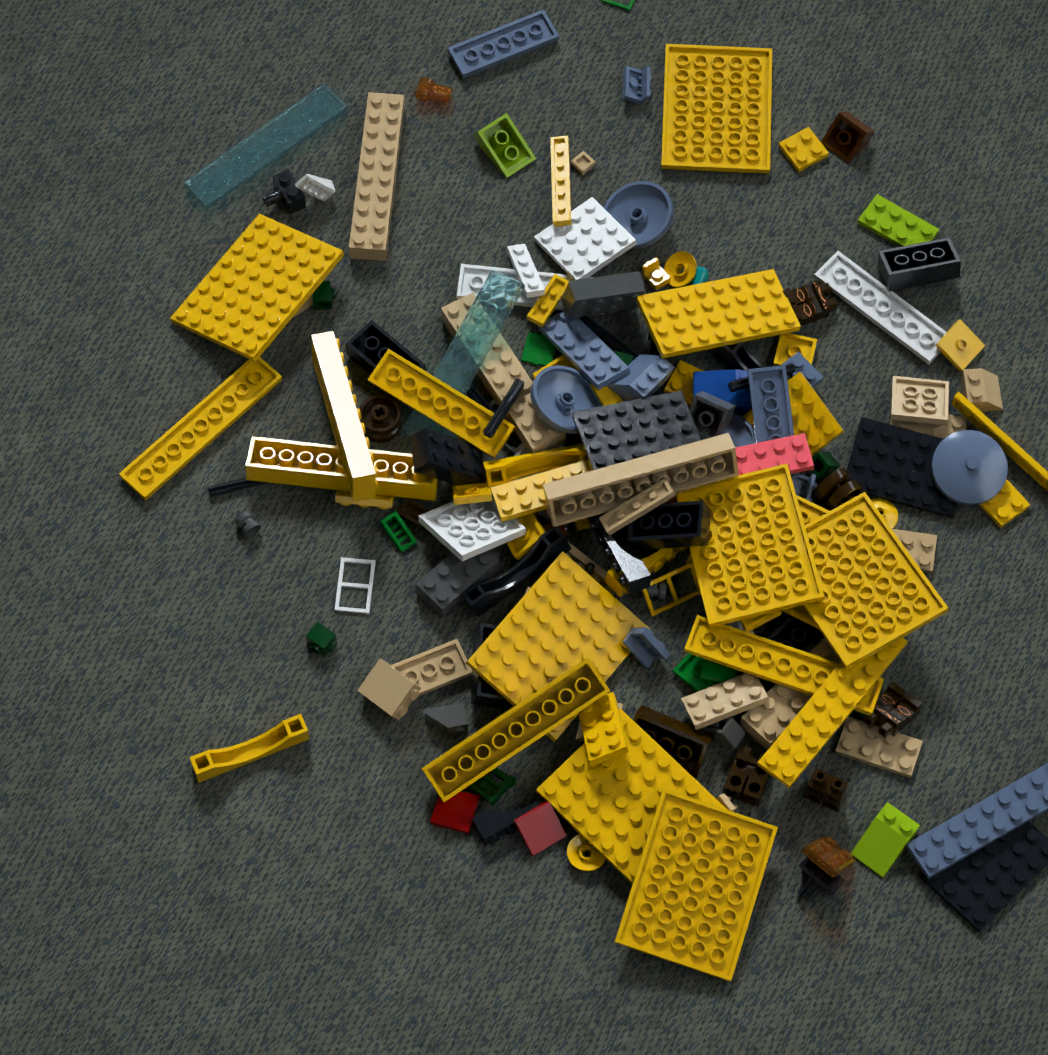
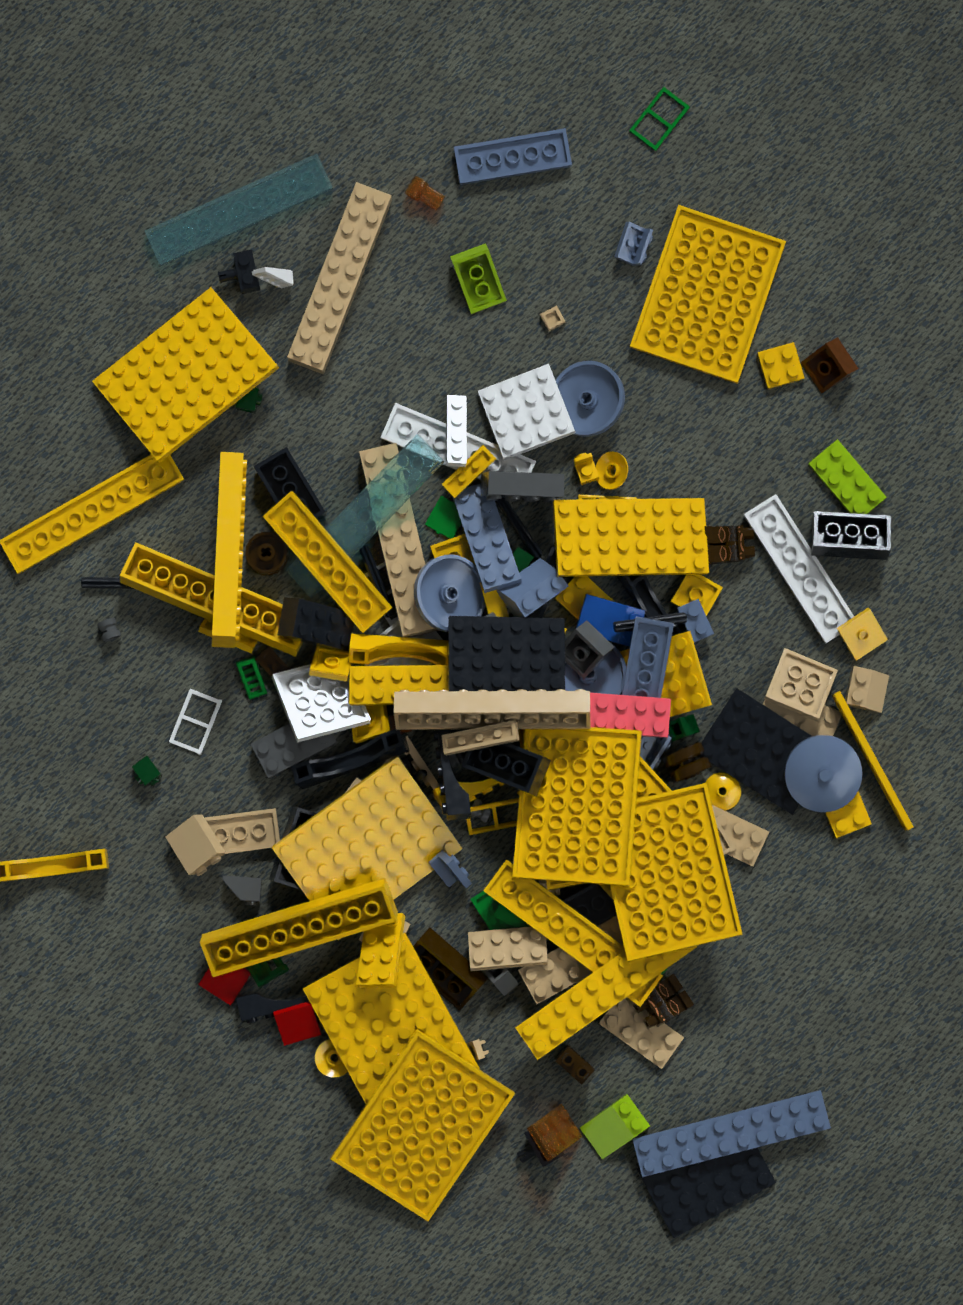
camera: 15 degrees right, 20 degrees up
(503, 408) = (385, 588): black axle -> none
(560, 181) = (522, 336): yellow tile -> none
(701, 276) = (627, 487): teal cone -> none
(744, 769) = (506, 1019): dark brown hips -> none

